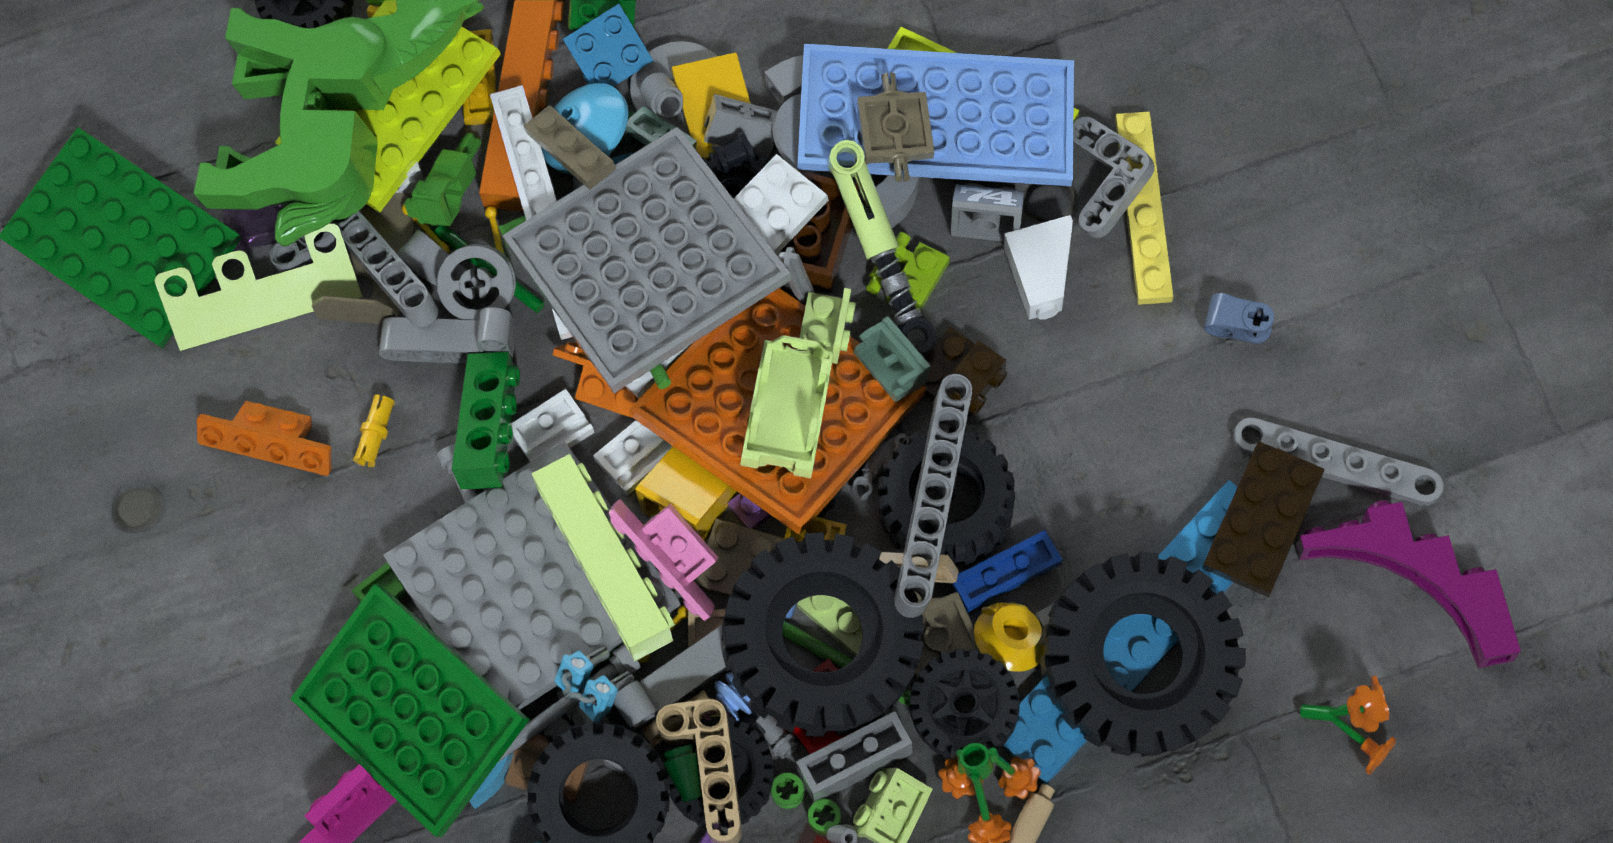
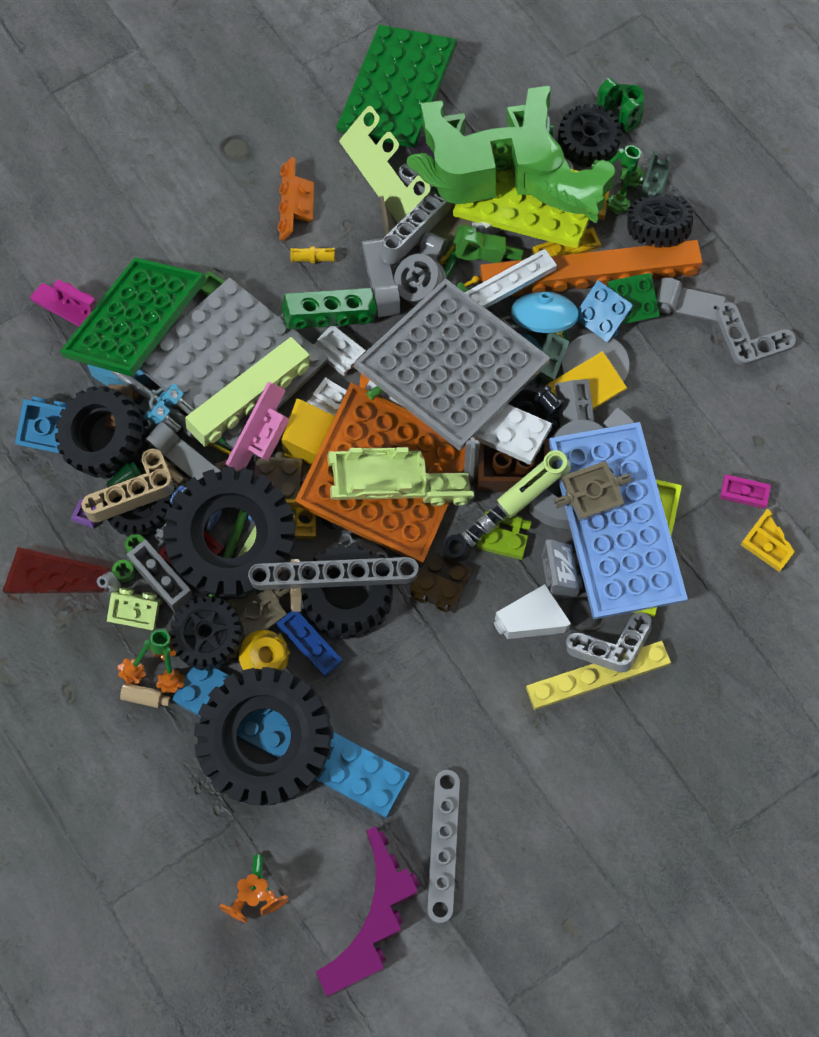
camera: 70 degrees right, 0 degrees up
(569, 147) = (517, 300): dark tan plate -> none
(661, 95) = (580, 350): light grey brick -> none
(892, 359) = (432, 534): sand green hinge -> none
(1235, 318) = (529, 752): sand blue piece -> none
(1263, 519) = (383, 799): dark brown plate -> none

